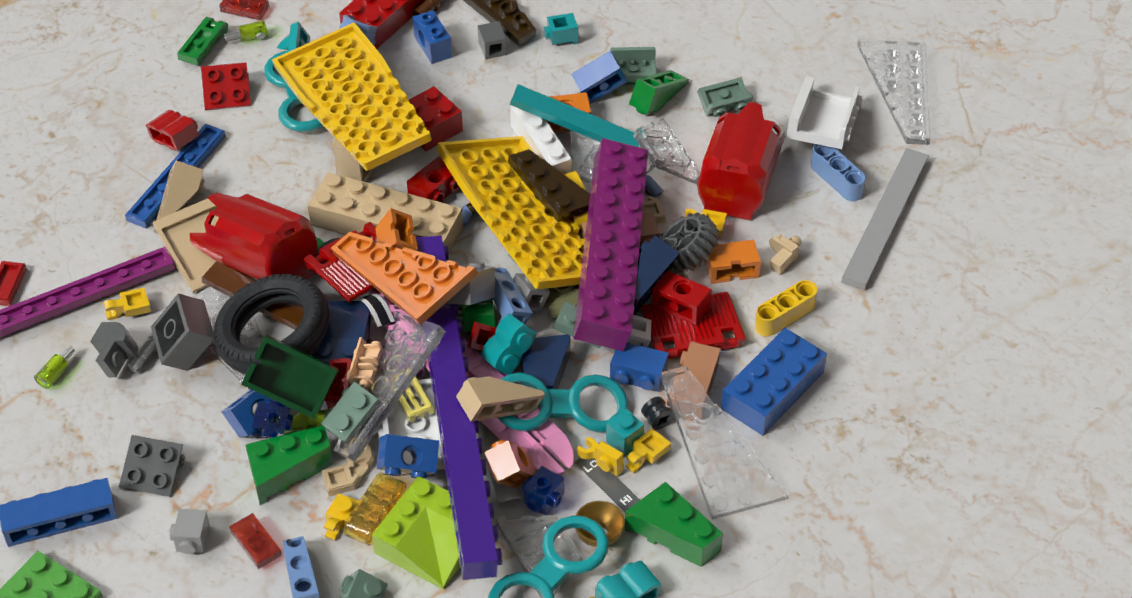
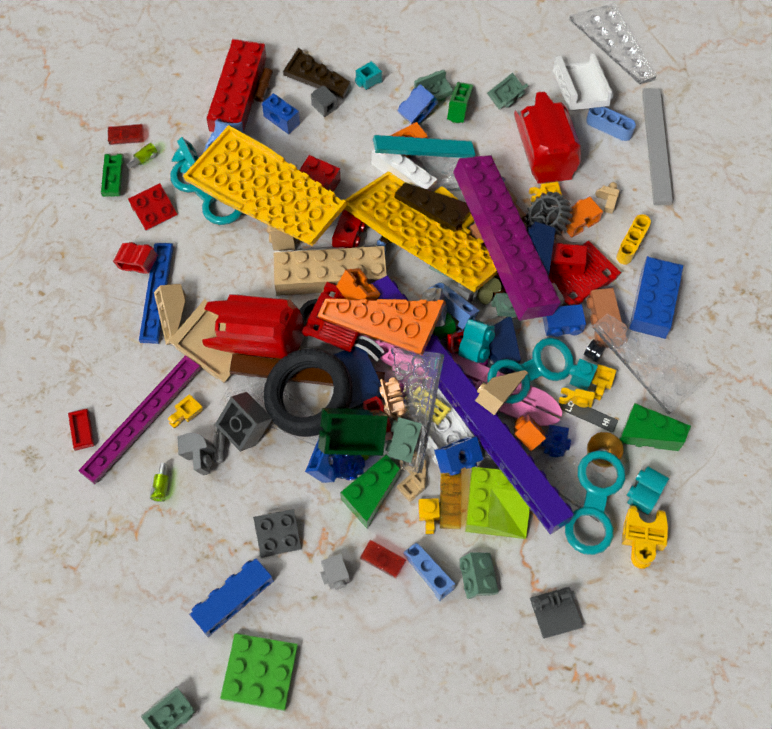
camera: 25 degrees left, 15 degrees up
(666, 150) = (487, 144): clear wing -> none

